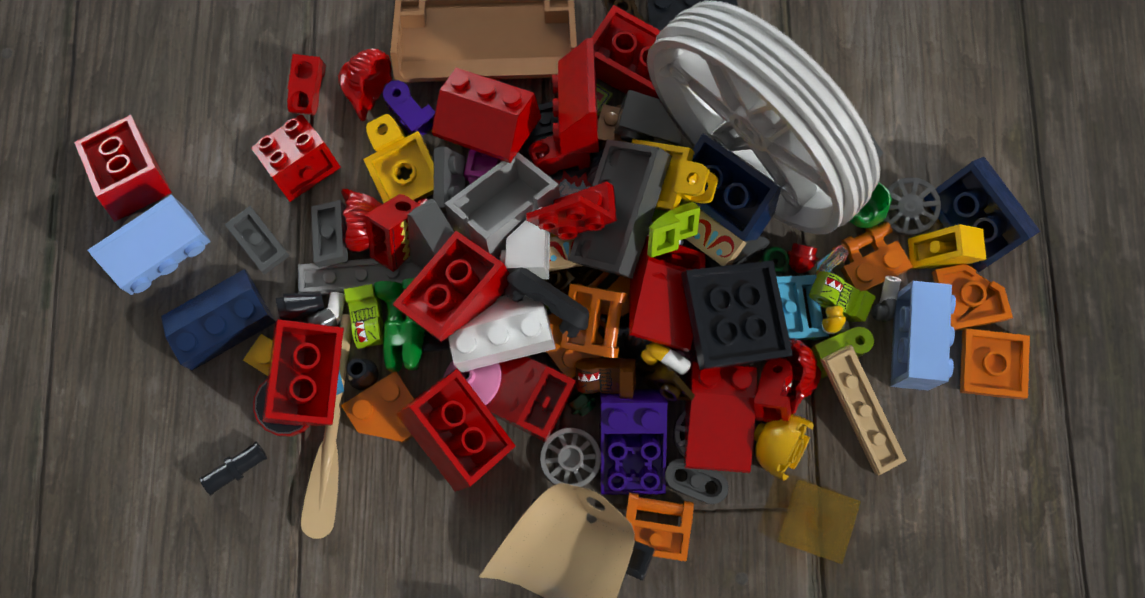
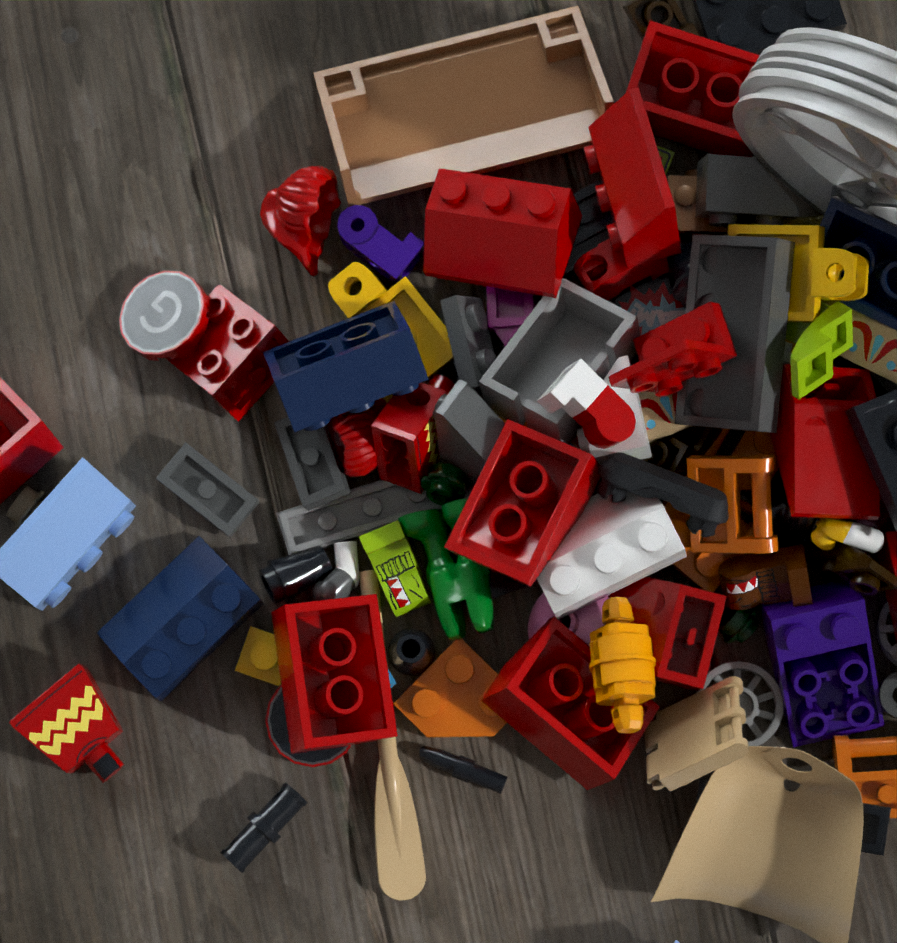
camera: 10 degrees left, 5 degrees up
(126, 371) = (73, 725): none -> red torso
(258, 123) = (164, 315): none -> tile
(305, 84) = (216, 240): red leg -> none
(359, 177) = (346, 367): none -> dark blue slope
(377, 459) = (463, 768): none -> black piece
(408, 266) = (444, 483): none -> dark green plate
(493, 410) = (622, 665): none -> light orange piece
(511, 230) = (591, 404): none -> leg
(534, 470) = (696, 736): none -> tan plate

